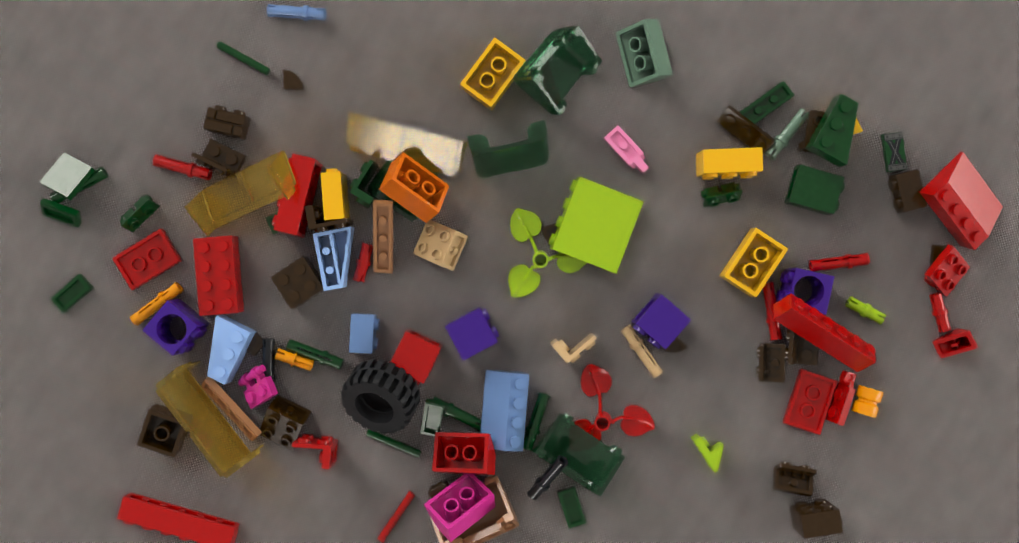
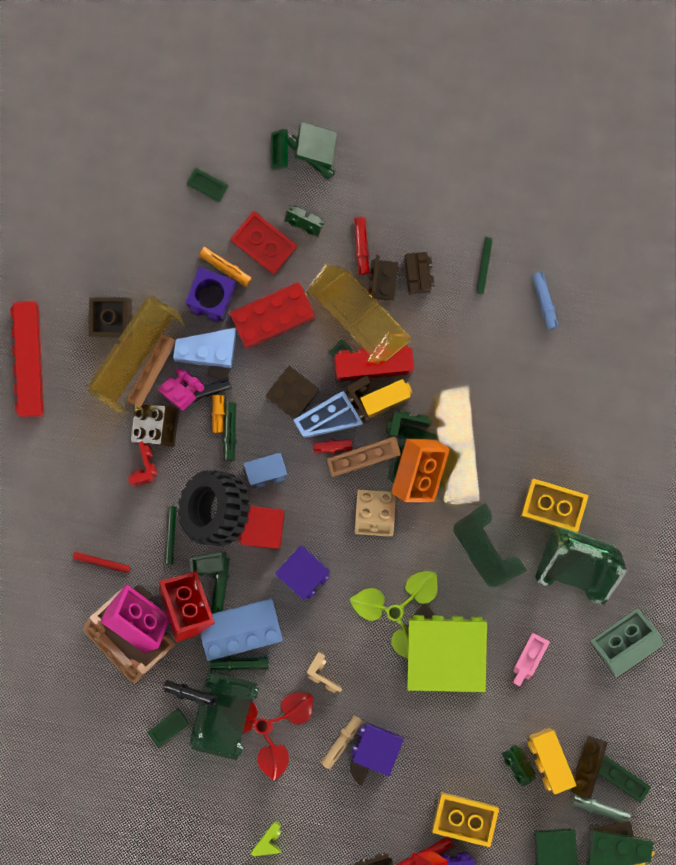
camera: 75 degrees right, 5 degrees down
(291, 81) = (479, 319): dark brown tile -> none

